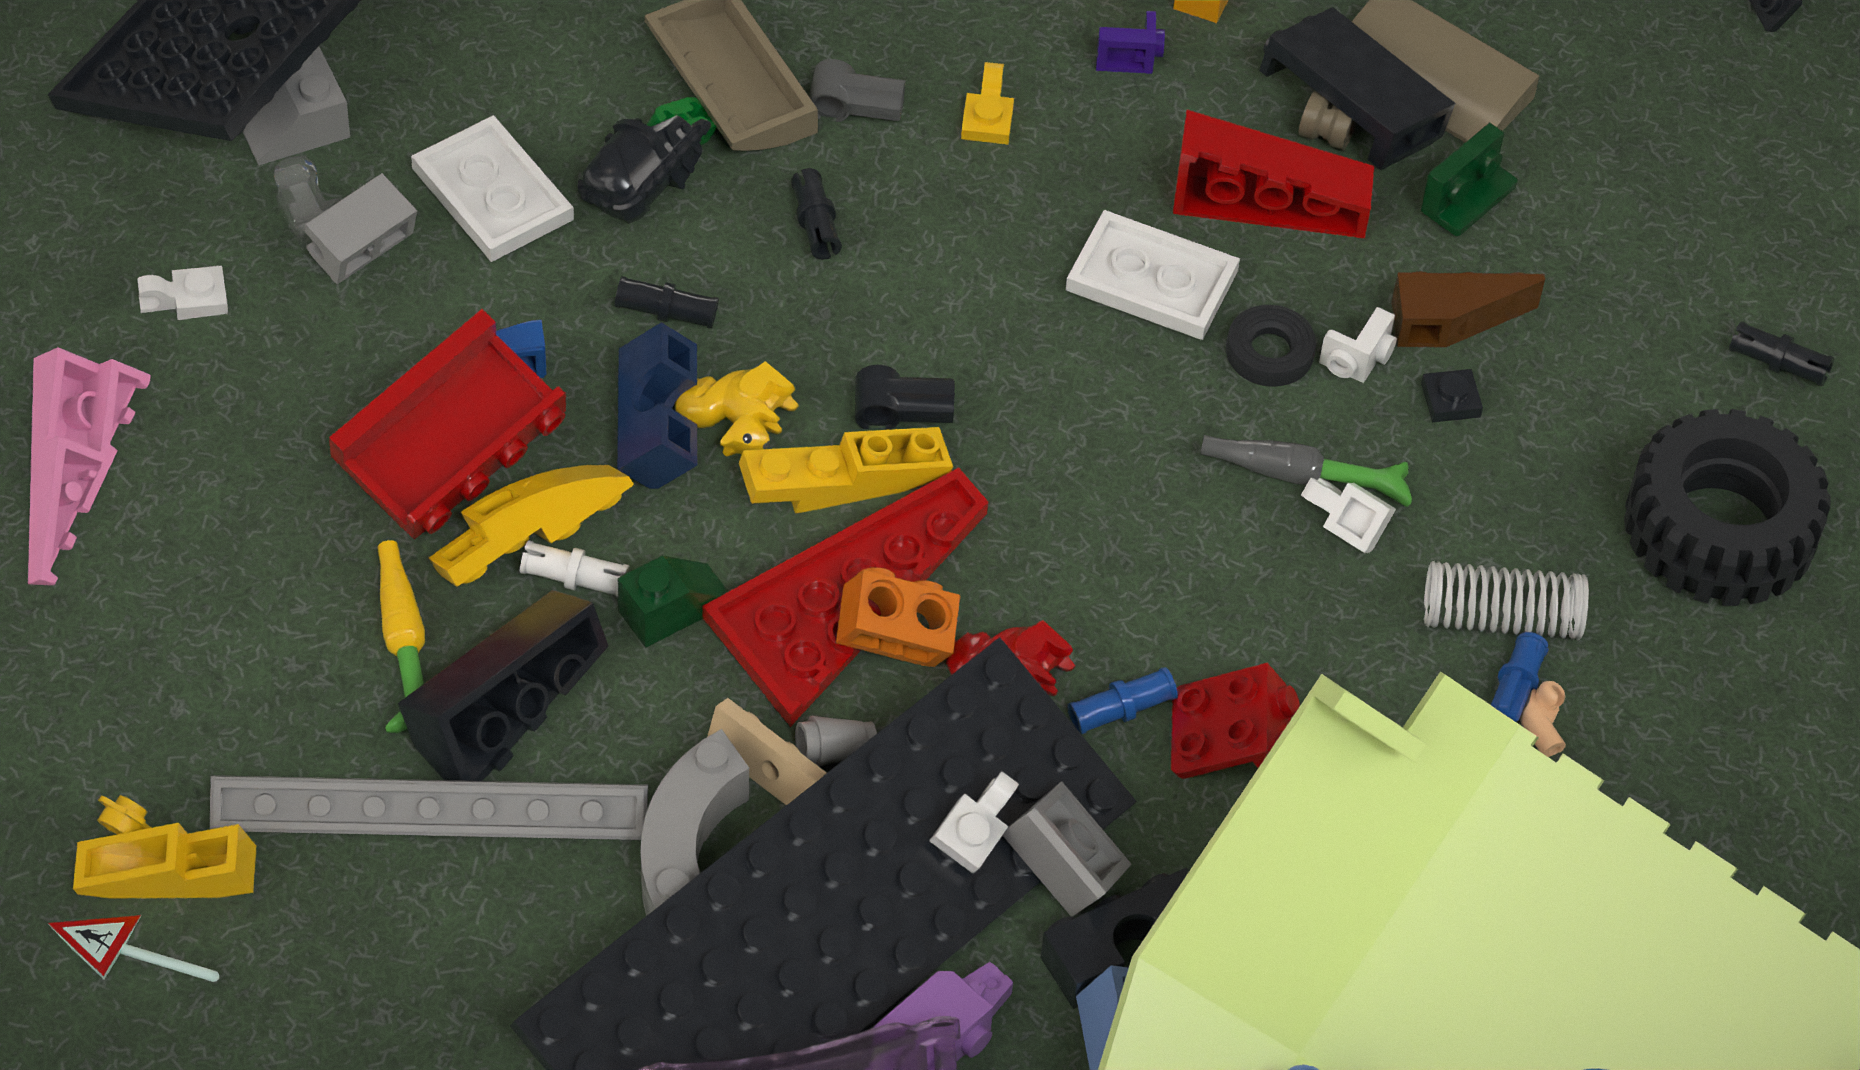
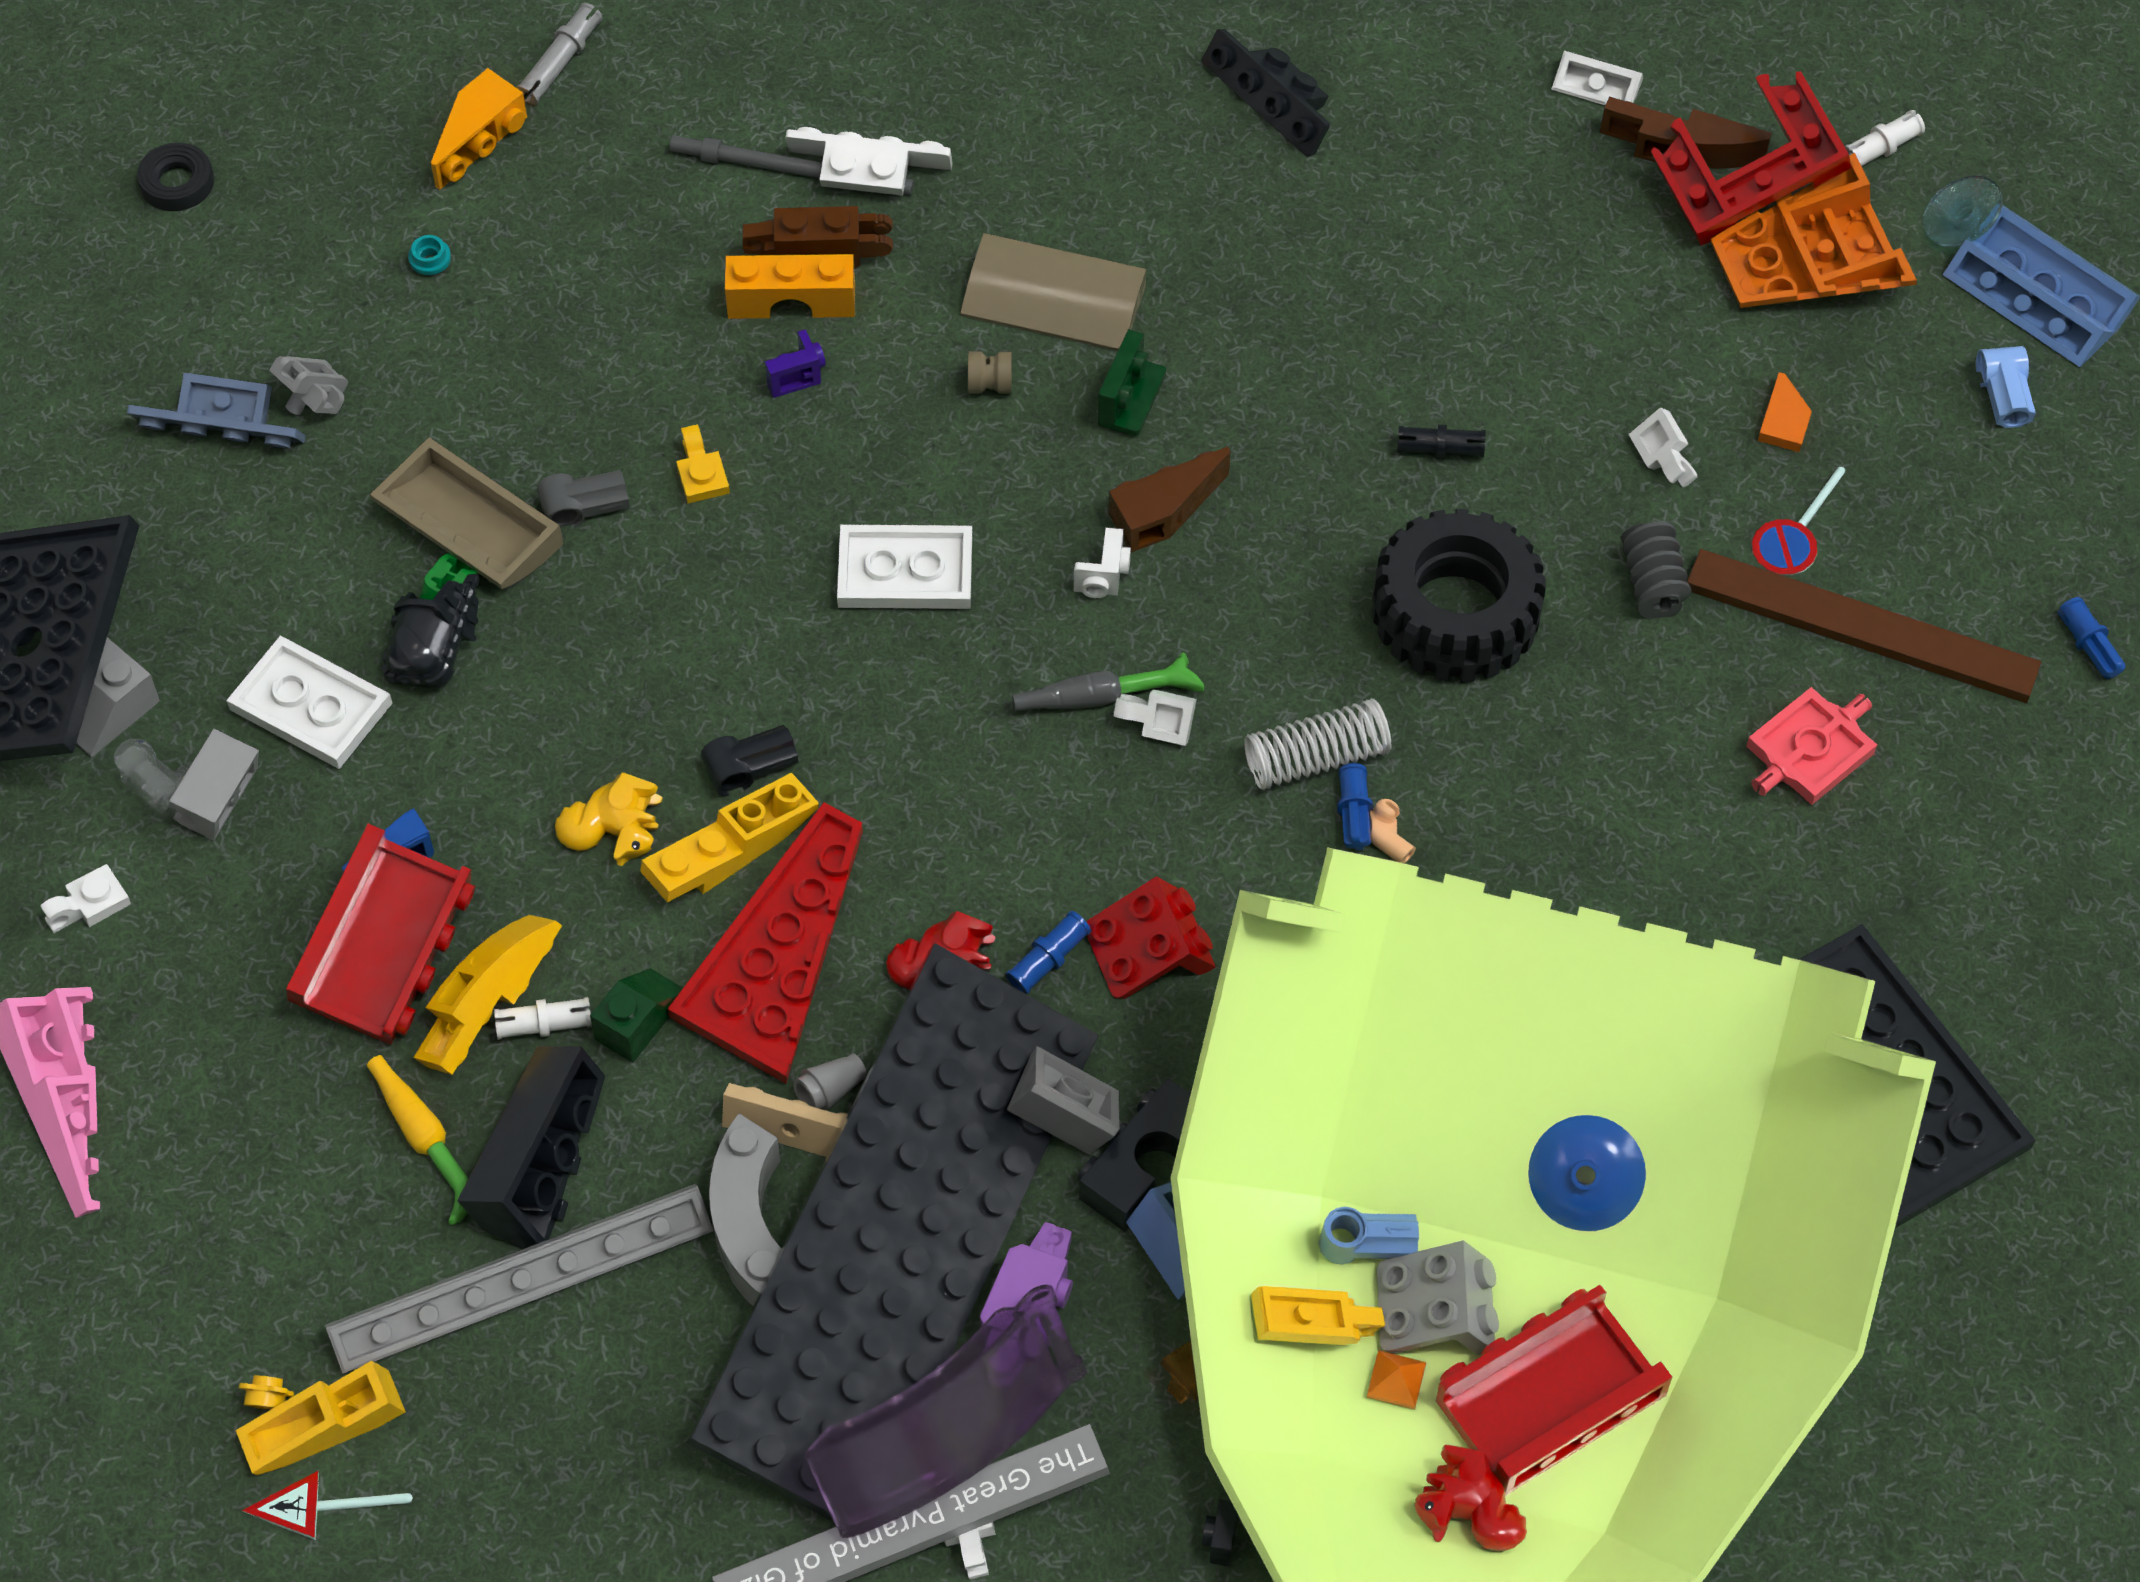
camera: 20 degrees left, 5 degrees up
(652, 437) = (557, 878): dark blue arch -> none
(666, 302) = (508, 748): black pin -> none
(816, 213) = (598, 619): black pin -> none
(898, 630) = (841, 965): orange brick -> none
(971, 826) = (982, 1115): white plate -> none
(1269, 180) = (966, 447): red wedge -> none
(1277, 321) = (1029, 569): black tyre -> none
(1362, 82) = (1003, 329): black panel -> none
(1452, 395) = (1194, 579): black plate -> none

